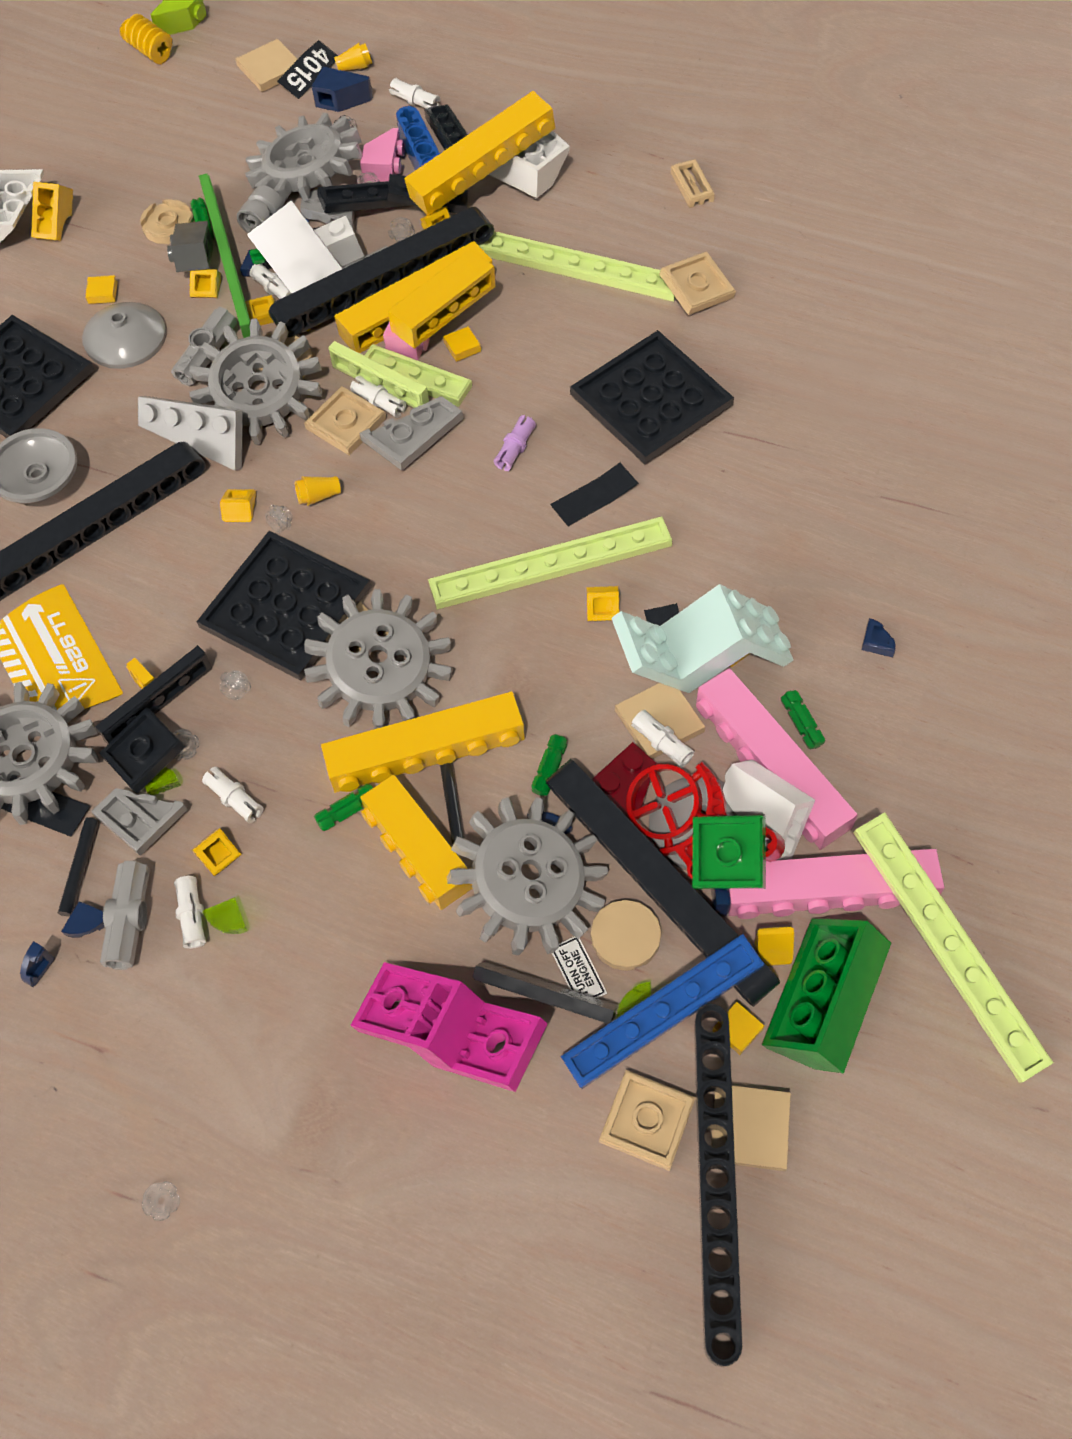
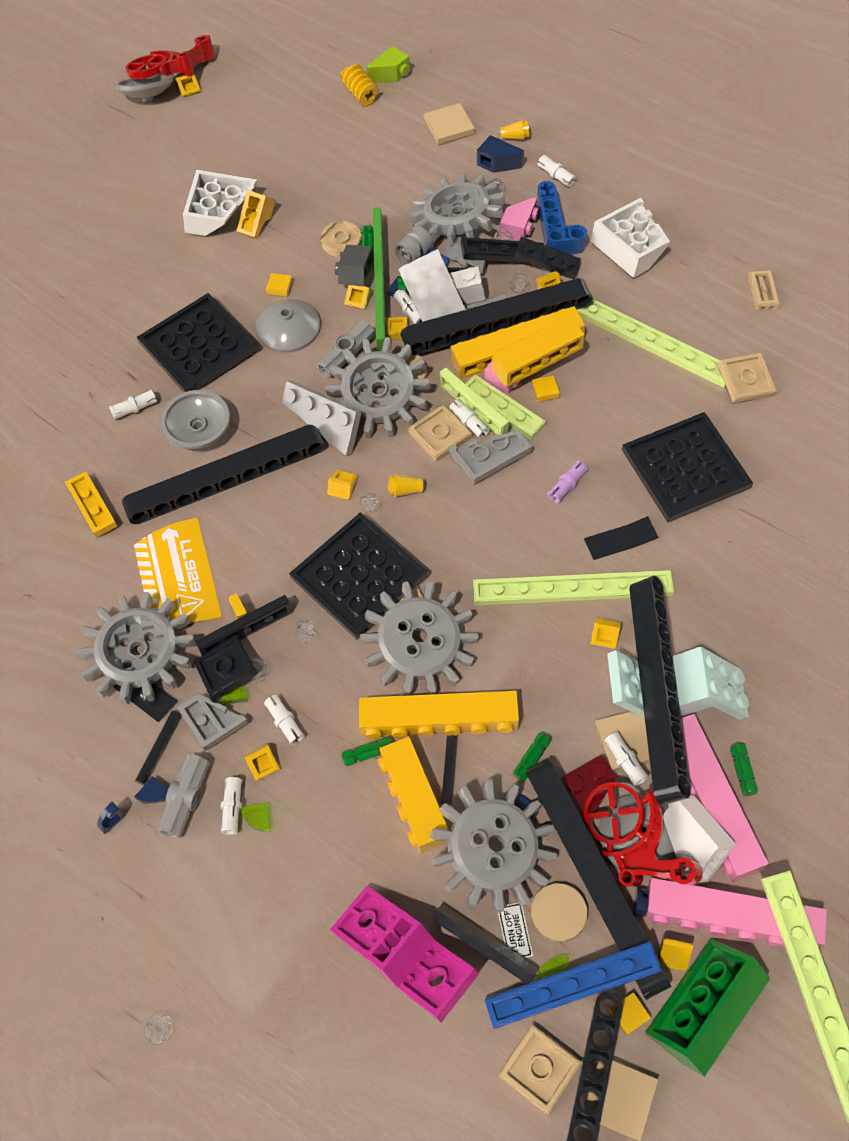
camera: 15 degrees right, 0 degrees up
(307, 68) = (477, 132): black sticker -> none
(445, 125) = (576, 208): black tile -> none
(480, 153) = (596, 235): yellow brick -> none
(683, 649) = (659, 692): none -> black beam
(729, 852) = (655, 872): green tile -> none
(878, 640) = (822, 716): dark blue tile -> none

